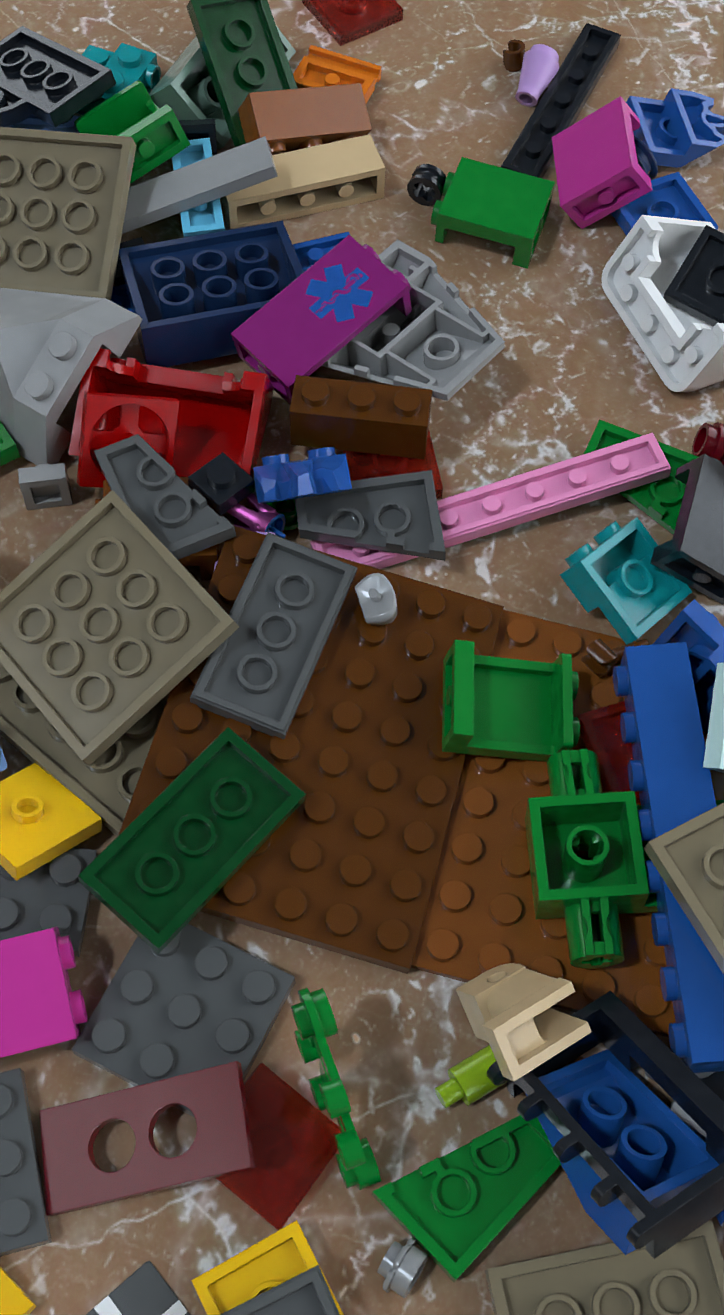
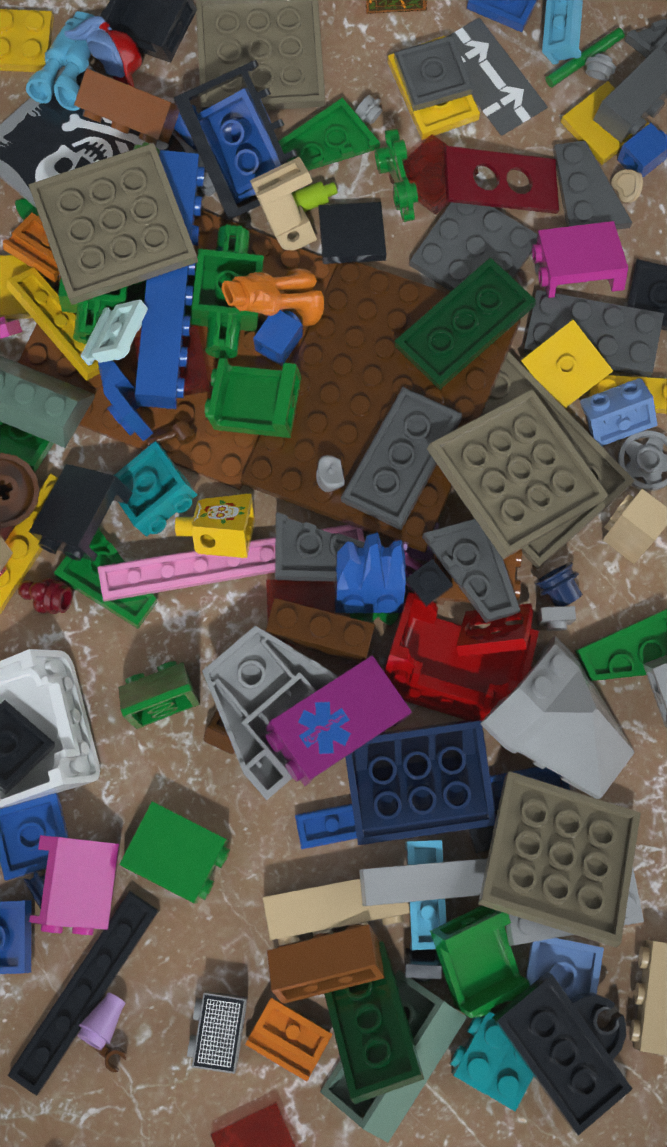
camera: 170 degrees left, 15 degrees up
(39, 521) = (560, 585): none -> dark blue piece
(399, 1014) = (352, 233): none -> black tile
(411, 75) = (218, 1031): none -> brick
(426, 184) = (226, 893): black bush -> none
(488, 805) = (278, 336): none -> blue brick
(518, 536) = (220, 525): none -> yellow torso
(535, 819) = (262, 294): none -> orange piece
(554, 326) = (157, 695): none -> green slope

